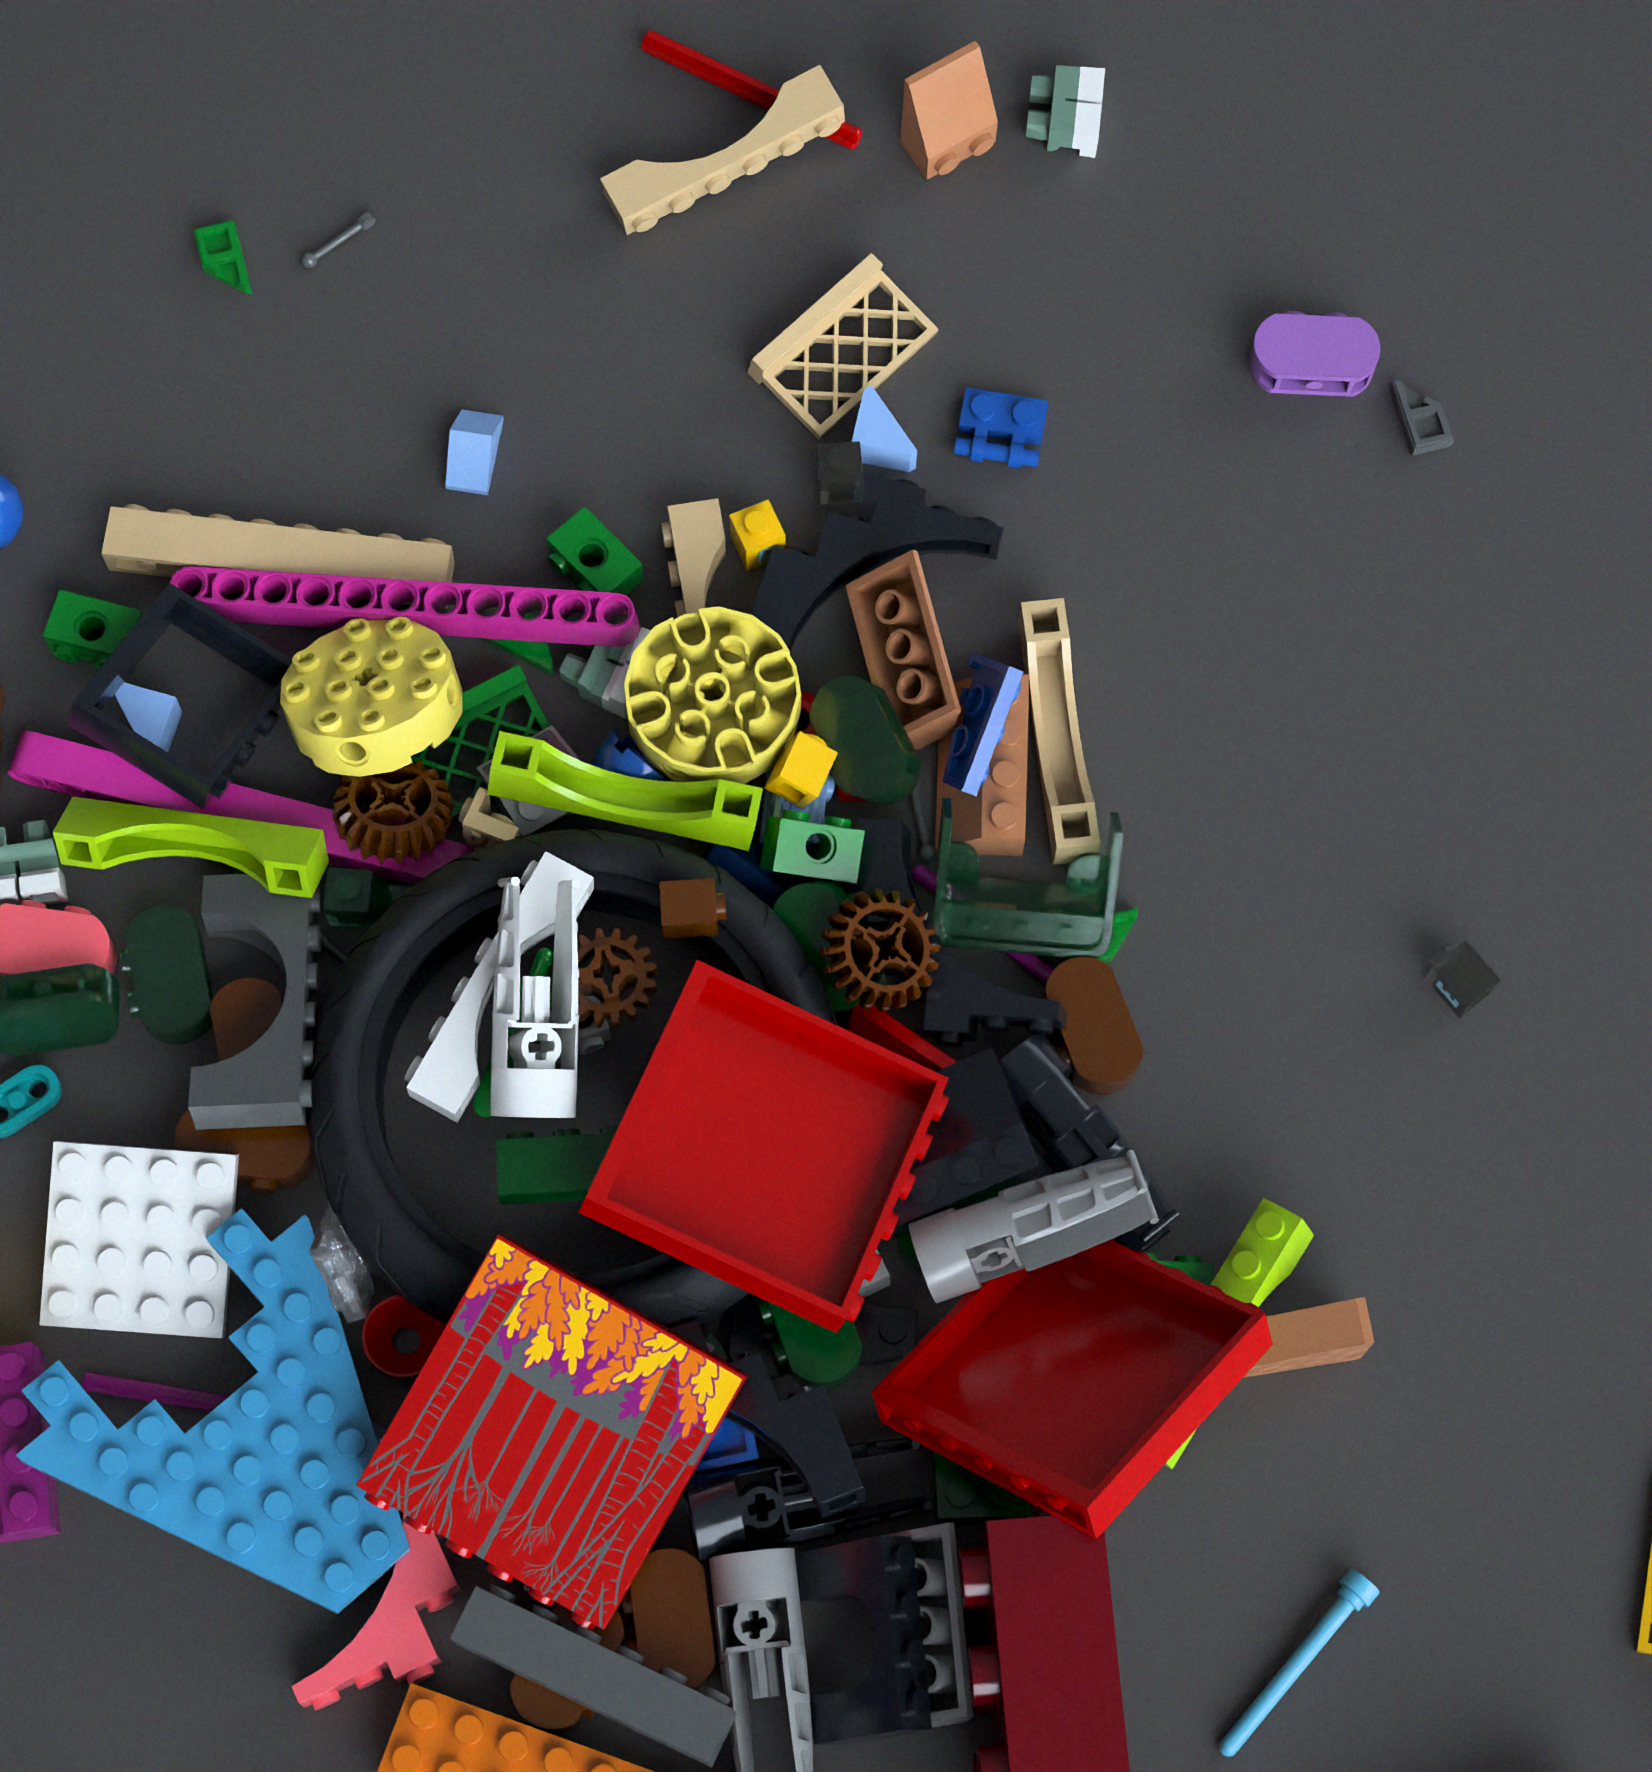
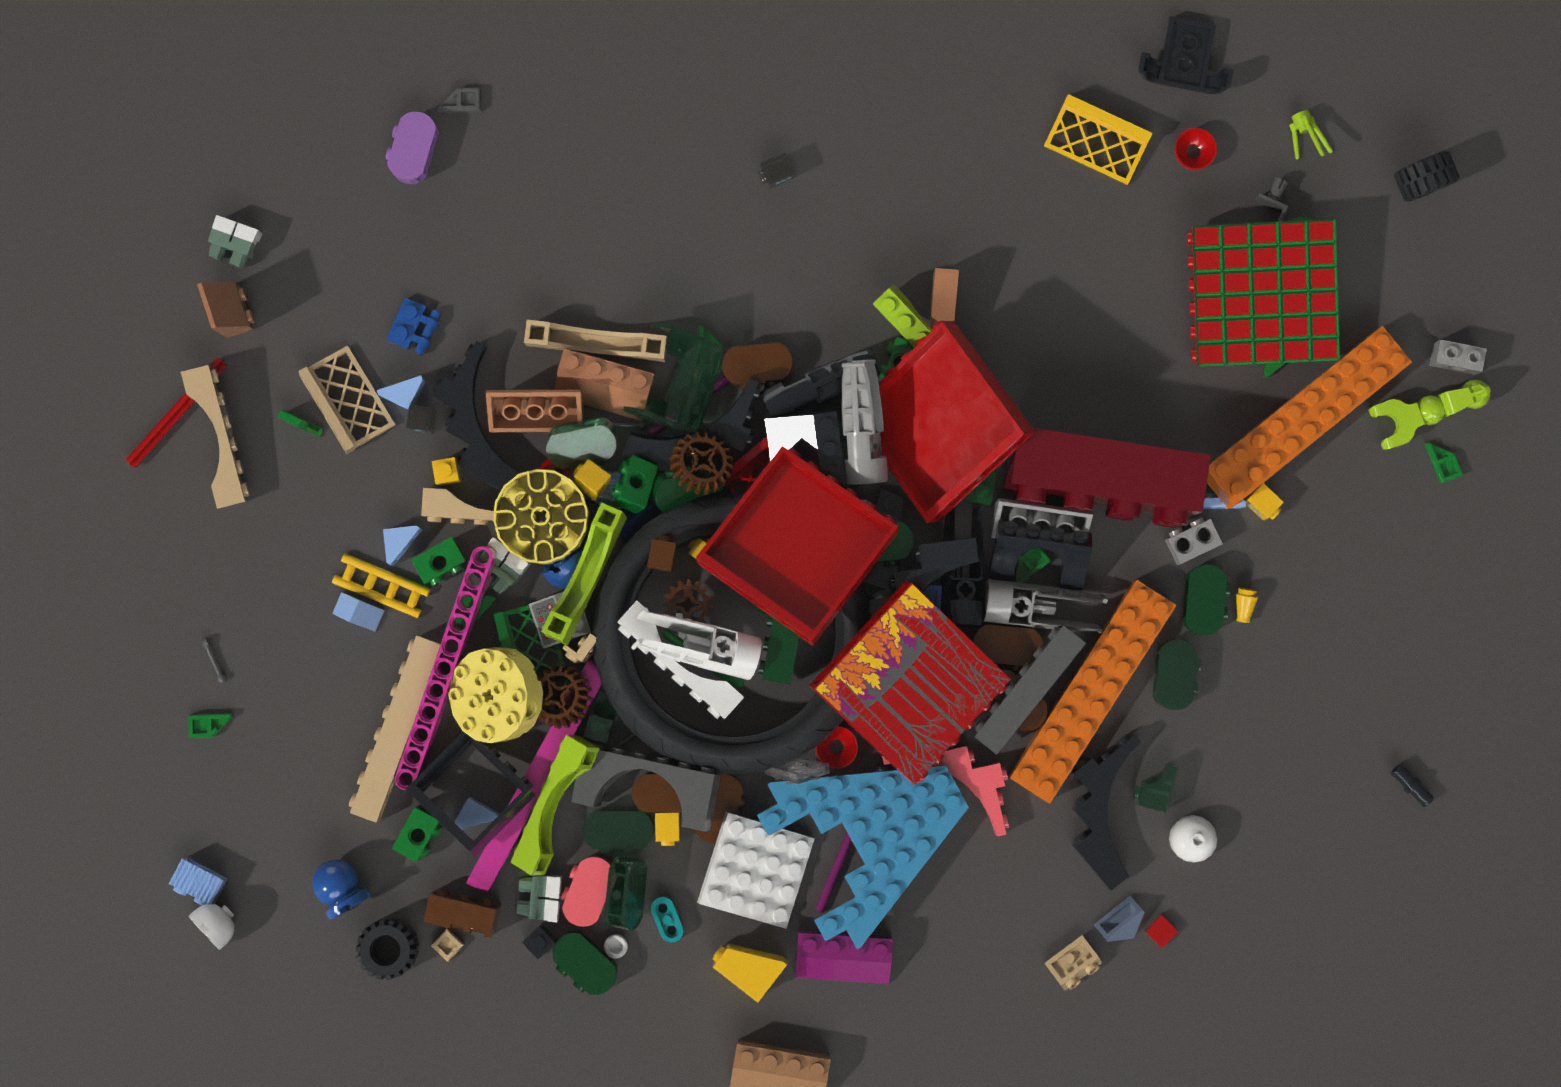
camera: 75 degrees left, 15 degrees up
(181, 1054) = (667, 828): none -> yellow brick
(509, 494) = (395, 581): none -> yellow bar
(612, 485) = (398, 541): none -> light blue slope
(782, 281) = (300, 423): none -> green tile
(844, 1632) = (1030, 563): none -> green tile
(985, 708) = (582, 376): blue wing -> none
(1353, 1594) = (1070, 313): medium azure piece -> none

